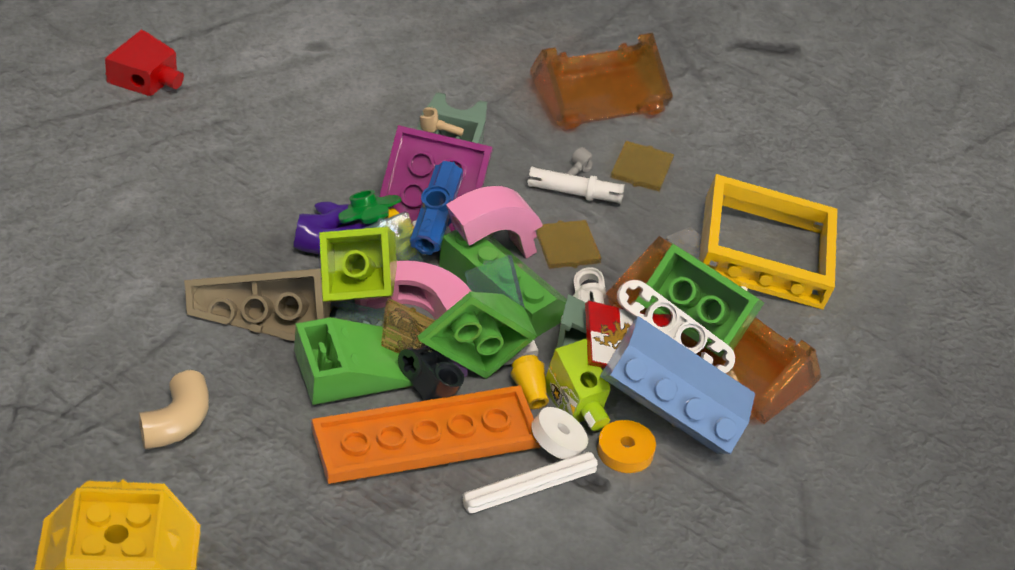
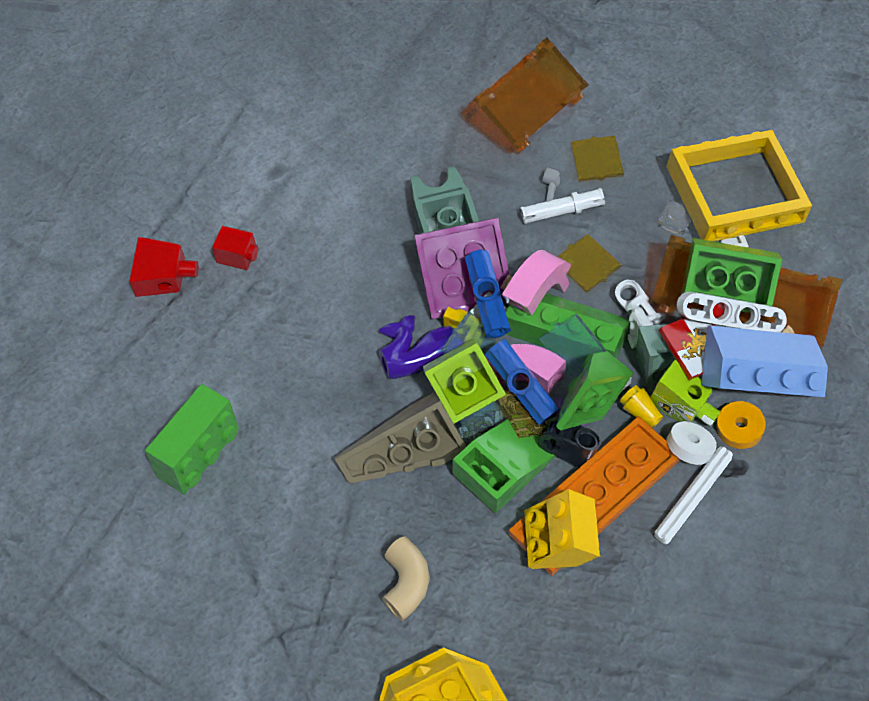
camera: 15 degrees left, 15 degrees up
(60, 201) = (192, 439): none -> bright green brick
(227, 80) = (235, 248): none -> red brick
(362, 437) = (562, 531): none -> yellow slope
(368, 207) = (429, 317): green plate -> none
(416, 278) = (509, 367): none -> blue piece
(430, 123) = (431, 213): tan hand -> none

